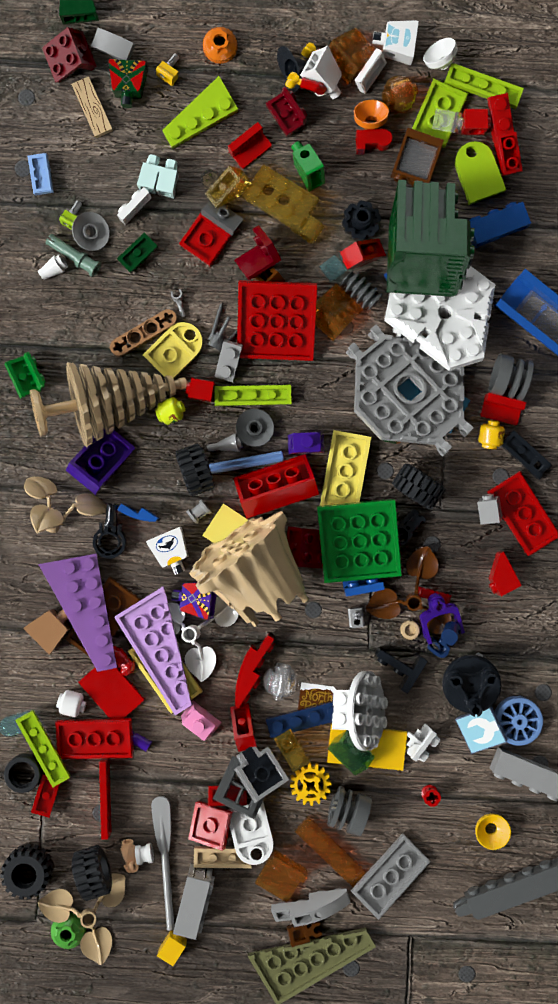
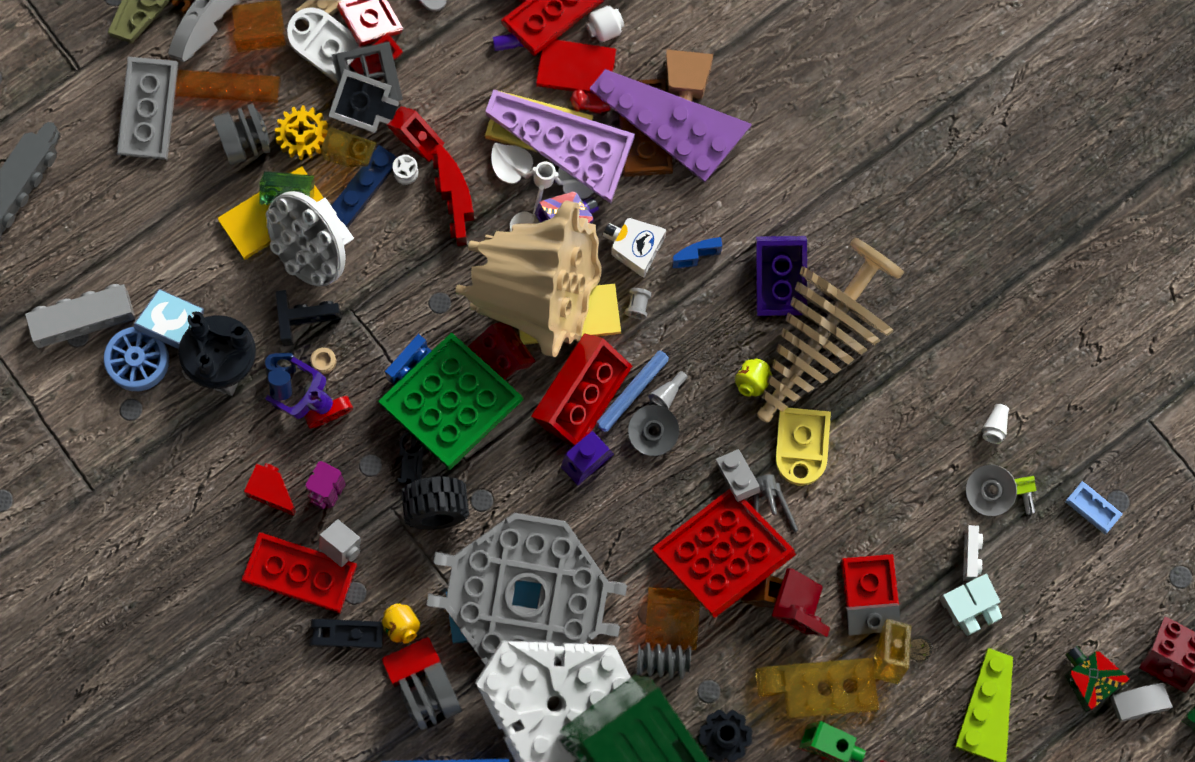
camera: 135 degrees right, 15 degrees down
(25, 375) = (928, 295): green bracket -> none
(47, 518) = (777, 165): tan plant -> none
(81, 259) = (976, 455): sand green pin -> none
(92, 107) = (1105, 621): tan tile -> none
(111, 521) = (712, 217): black pin -> none
(137, 253) = (925, 509): dark green plate -> none
(142, 330) = (849, 435): medium nougat beam -> none
(166, 71) = (1065, 723): yellow piece -> none
(178, 300) = (839, 495): light grey hand -> none
(195, 469) = (677, 335): black tyre -> none
(199, 721) = (463, 104): bright pink torso -> none
(200, 390) = (740, 423): red brick -> none
(249, 146) = (908, 717): red panel -> none
(252, 395) = (683, 462): lime plate -> none
(269, 711) = (404, 164): none -> white wheel
(281, 681) = (414, 205): clear plant -> none
(314, 694) = (369, 221): sticker -> none
(332, 268) = (713, 662): clear light blue tile -> none
(345, 468) = (524, 464): light yellow plate -> none
(356, 613) = (391, 332): light grey piece -> none
(362, 253) = (696, 699): red slope -> none
(385, 603) = (369, 364): reddish brown plant -> none
(419, 742) = (224, 258): white hips -> none
(425, 792) = (167, 222): red bush -> none
(472, 550) = (325, 485): none -> magenta brick
(493, 840) = (69, 221): yellow piece -> none

